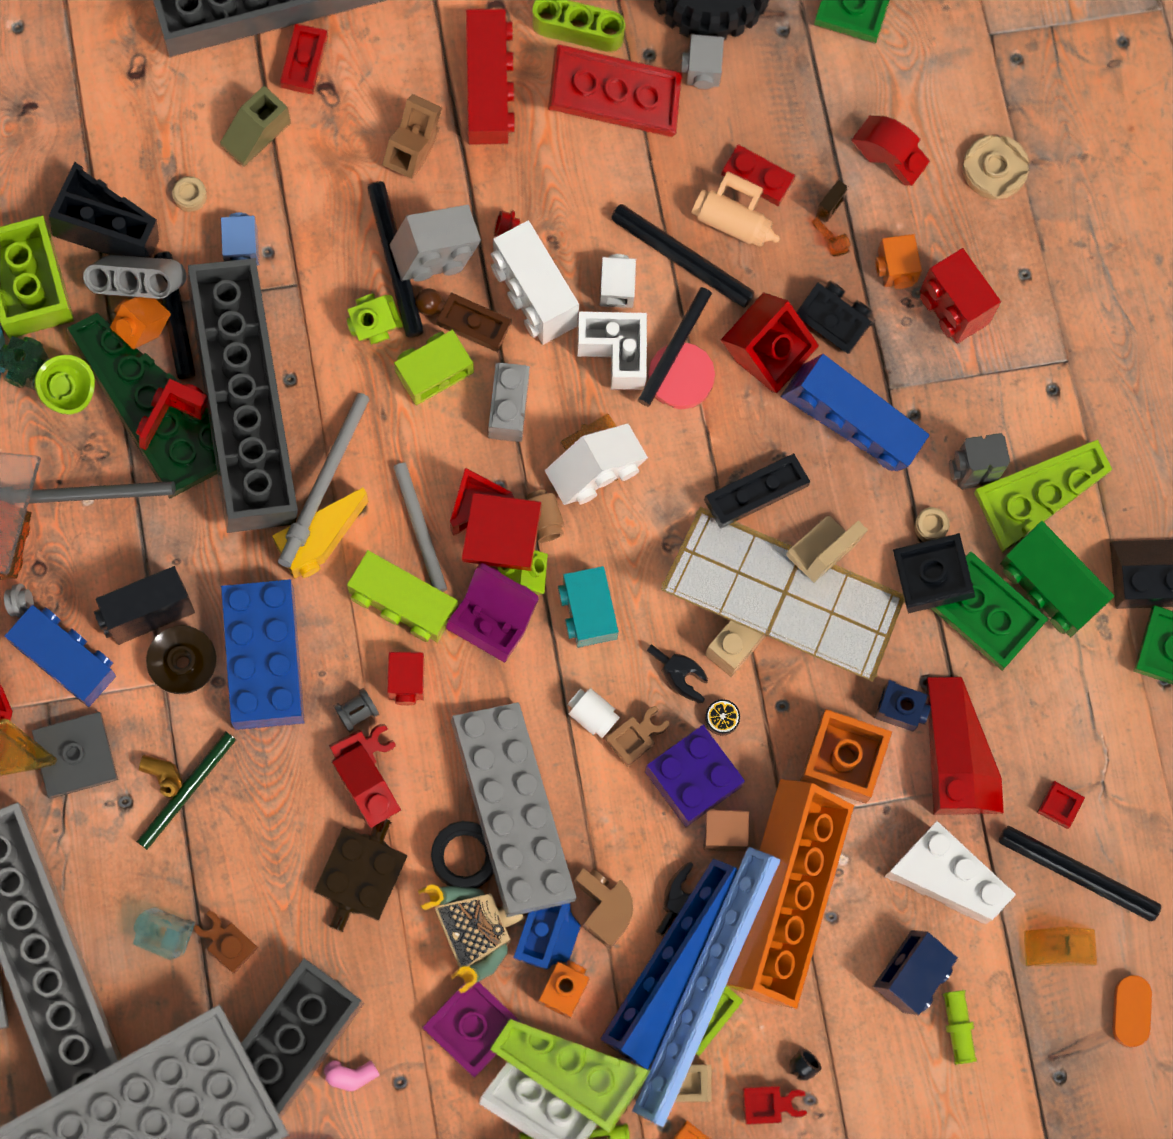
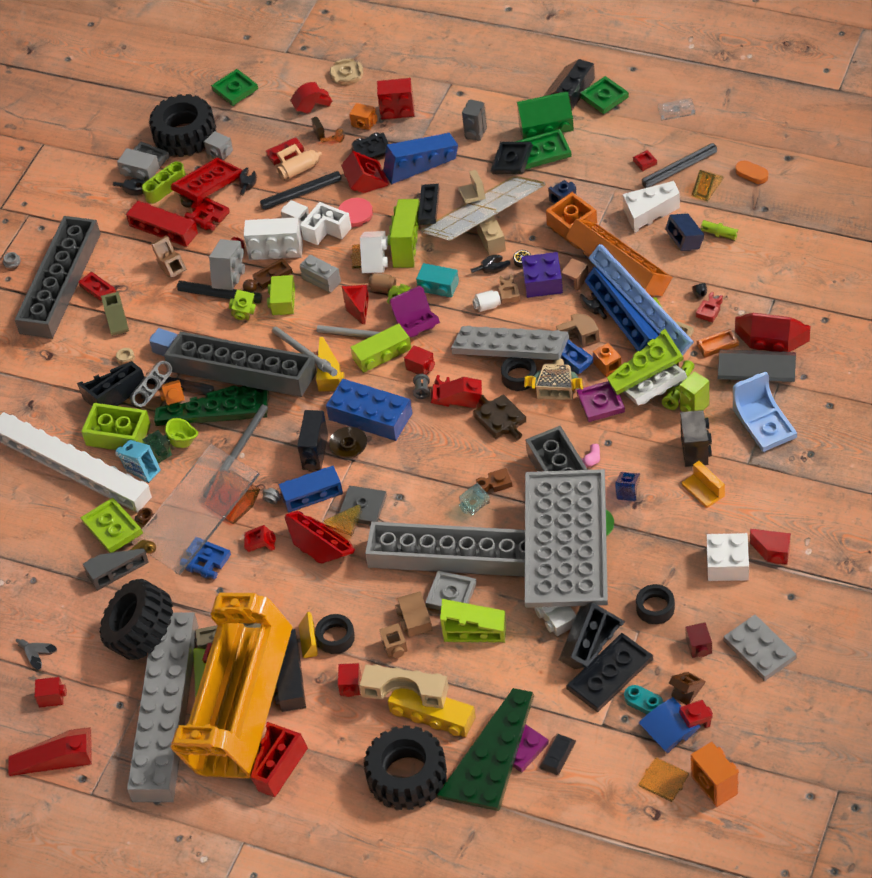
camera: 45 degrees left, 25 degrees down
(166, 774) = (397, 472): pearl gold arm -> none
(185, 398) = (223, 388): red bracket -> none
(186, 791) = (411, 468): dark green bar -> none
(502, 532) = (380, 288): red tile -> none
(560, 137) = (210, 210): none -> red plate
(653, 155) = (247, 182): none -> black hand
(670, 486) = (404, 233): none -> lime wedge
(674, 346) = (340, 204): black bar -> none
(931, 524) = (488, 154): tan tile -> none
(961, 760) = (599, 186): red wedge -> none
(1038, 492) = (501, 113): lime wing -> none

